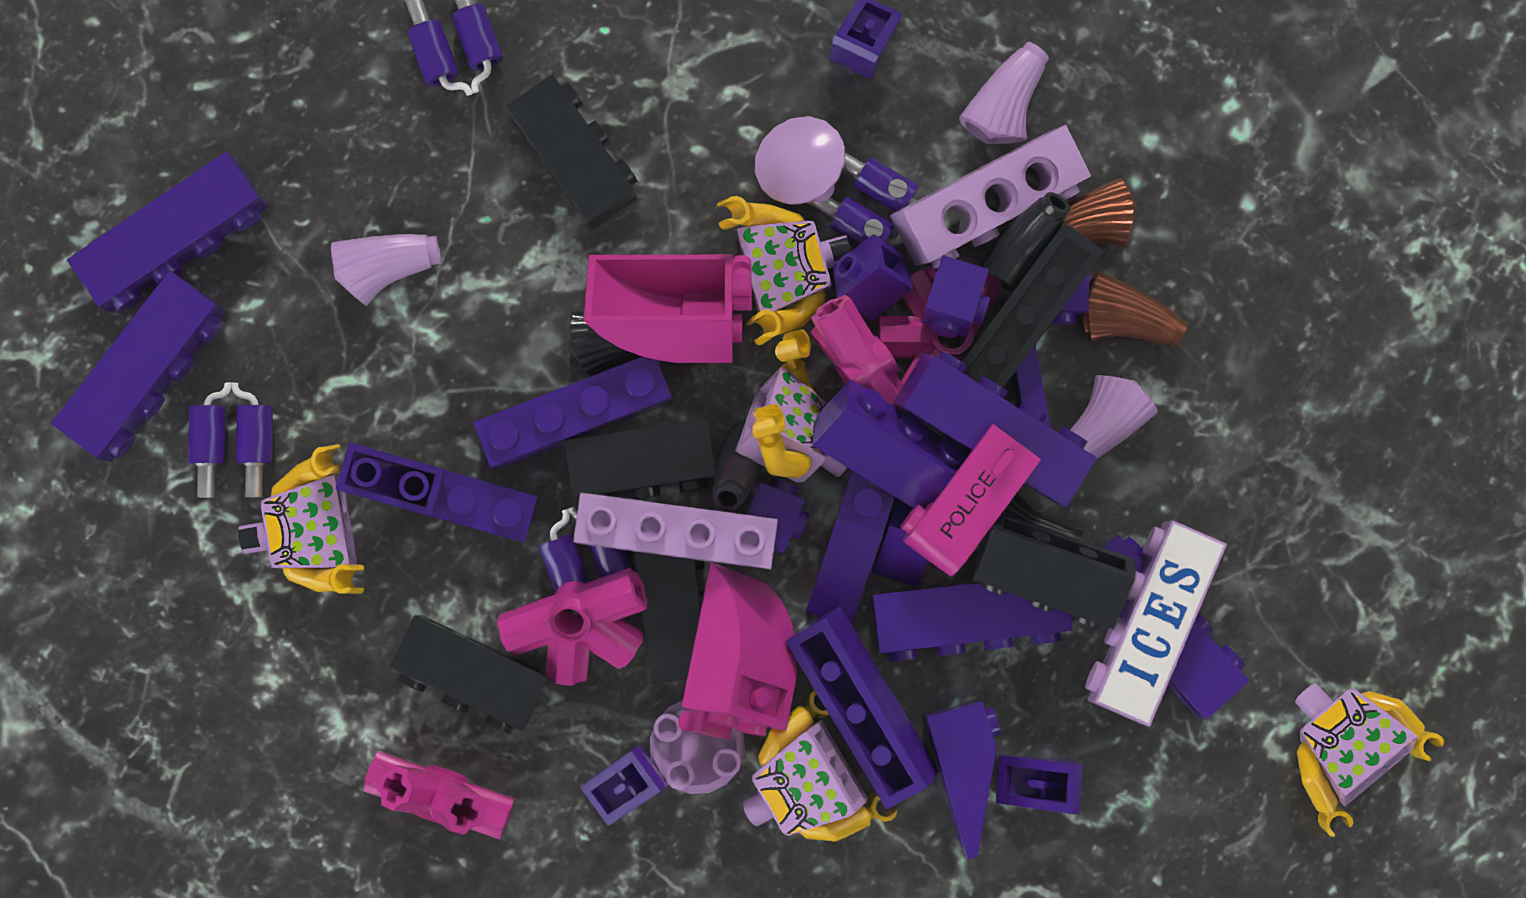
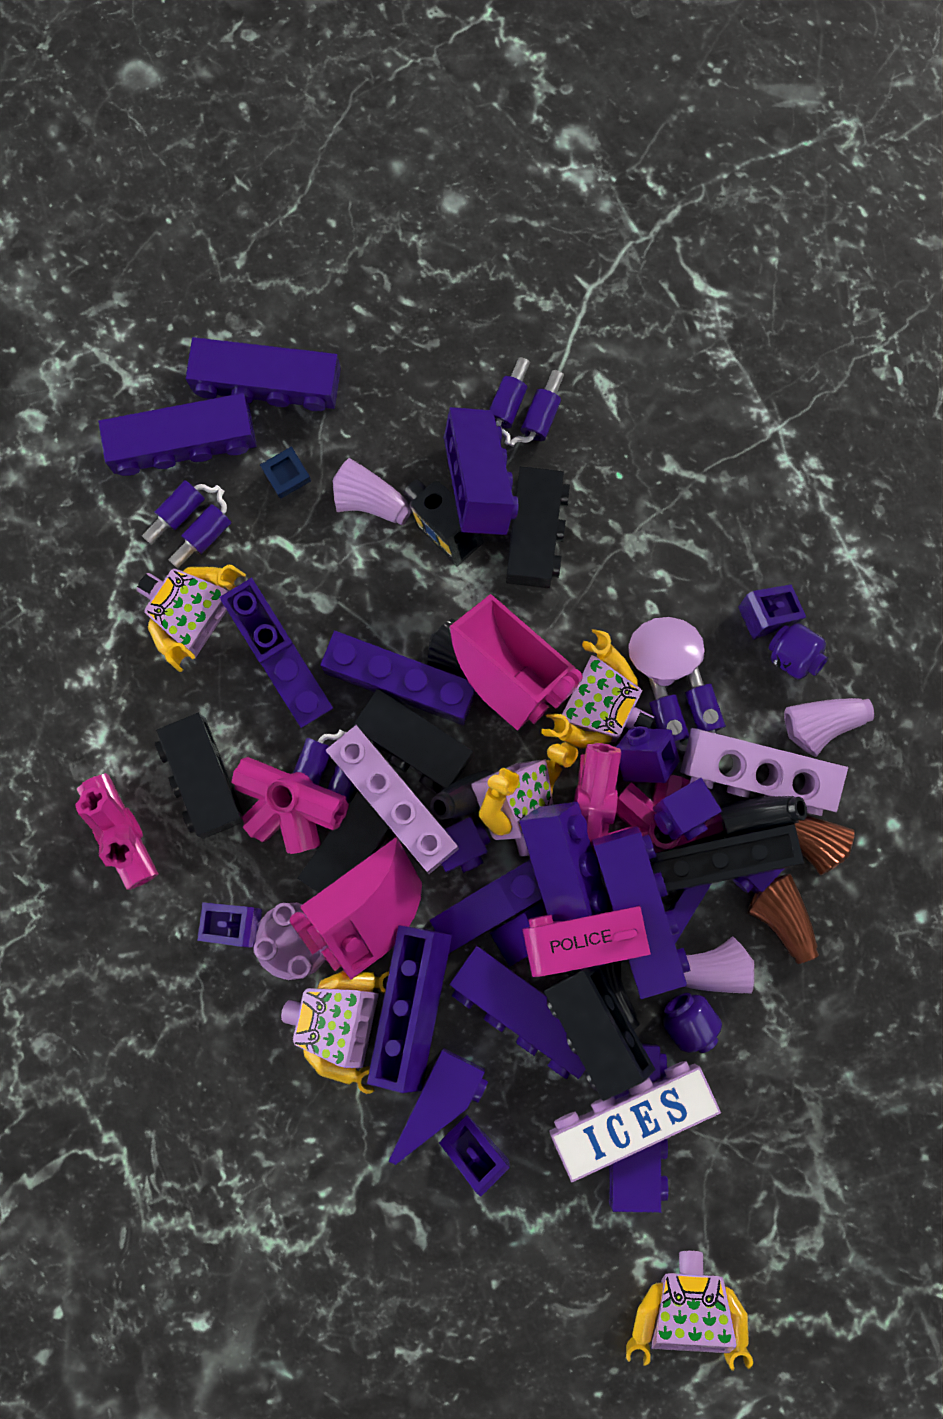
camera: 50 degrees right, 5 degrees down
(281, 311) = (285, 472): none -> dark blue plate
(473, 146) = (479, 471): none -> dark purple brick
(478, 222) = (438, 518): none -> black torso
(924, 53) = (798, 651): none -> dark purple head
(1128, 487) = (692, 1023): none -> dark purple head

